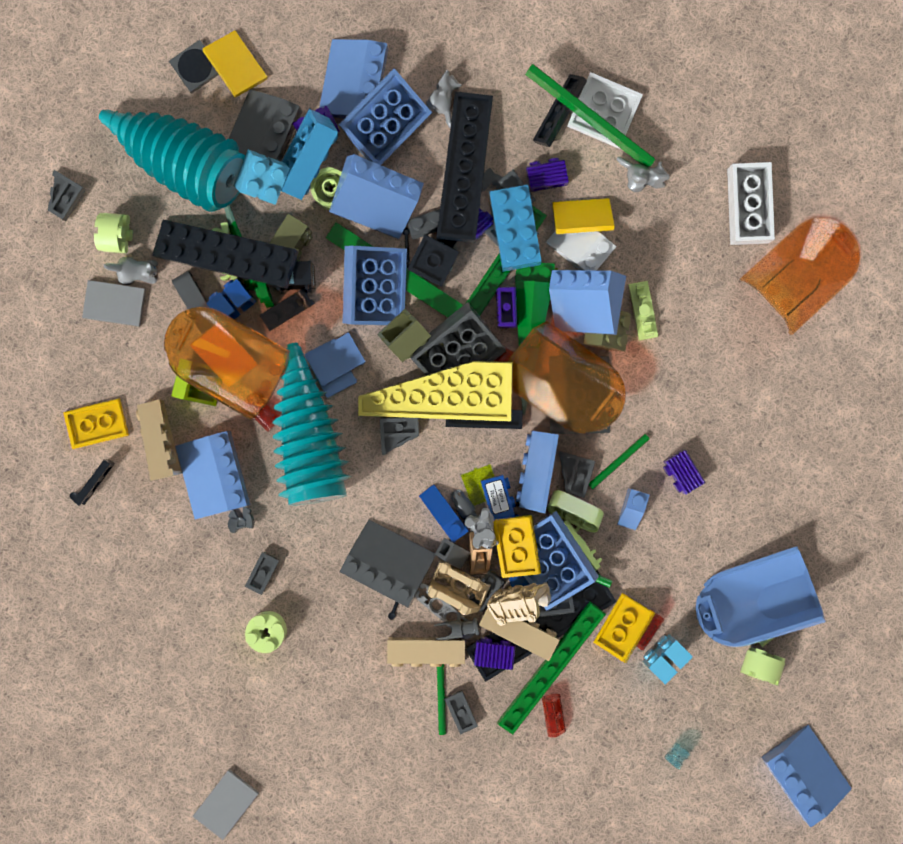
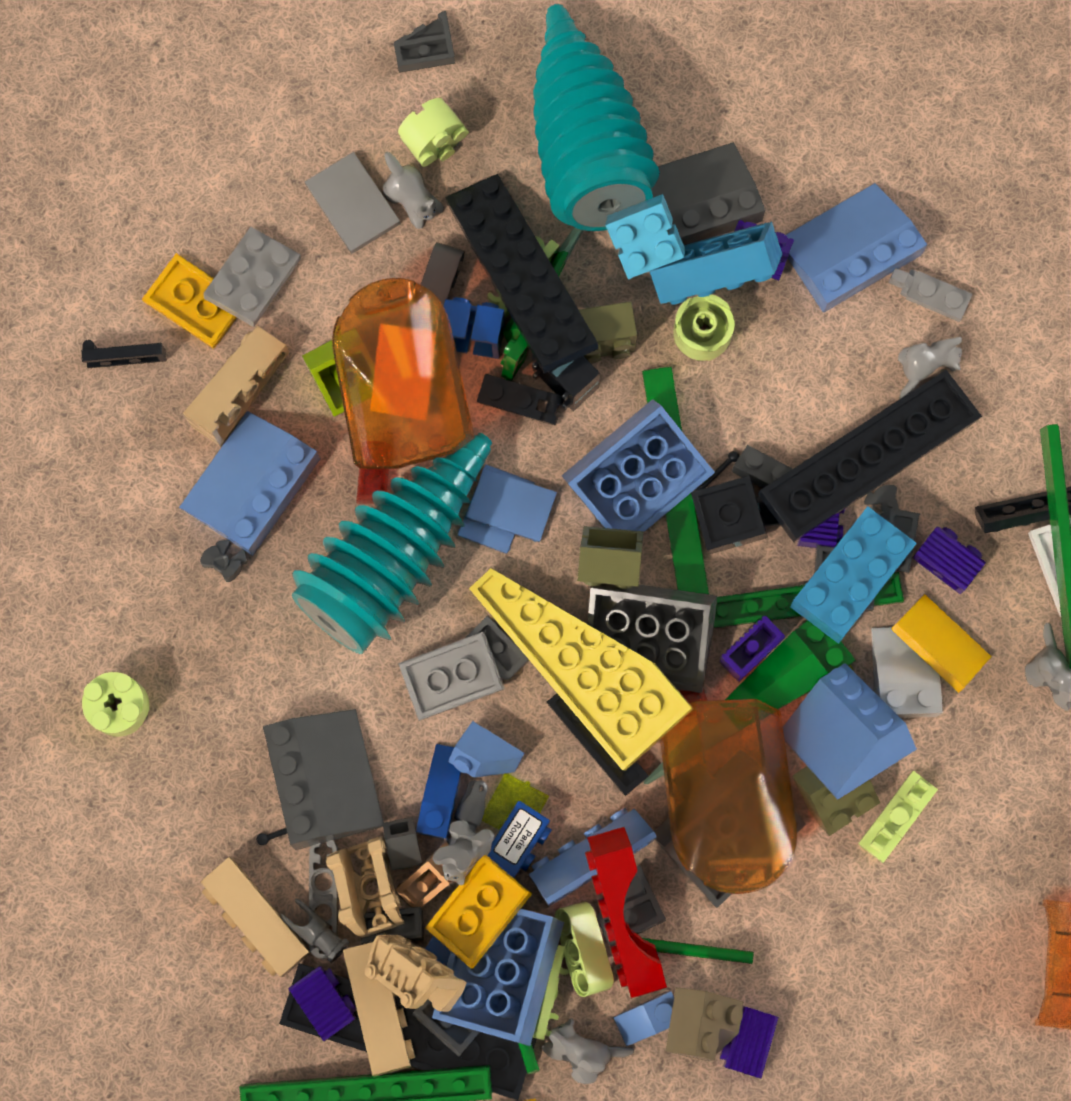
camera: 50 degrees right, 10 degrees down
(108, 385) = (252, 276): none -> light grey plate
(193, 67) = (703, 62): black tile -> none
(235, 63) = (746, 101): yellow tile -> none
(262, 573) = (182, 639): dark grey plate -> none
(375, 196) = (741, 383): medium blue slope -> none
(385, 118) = (839, 316): medium blue slope -> none
(393, 460) = (451, 676): none -> light grey tile
(413, 62) = (931, 293): none -> light grey hinge
(441, 700) = (211, 990): green bar -> none
(444, 478) = (484, 753): none -> medium blue slope
(461, 712) = (216, 1028): dark grey plate -> none
(558, 468) = (615, 868): none -> red arch
(624, 553) = (585, 1055): none -> light grey animal
(659, 488) = (702, 1023): none -> dark tan slope

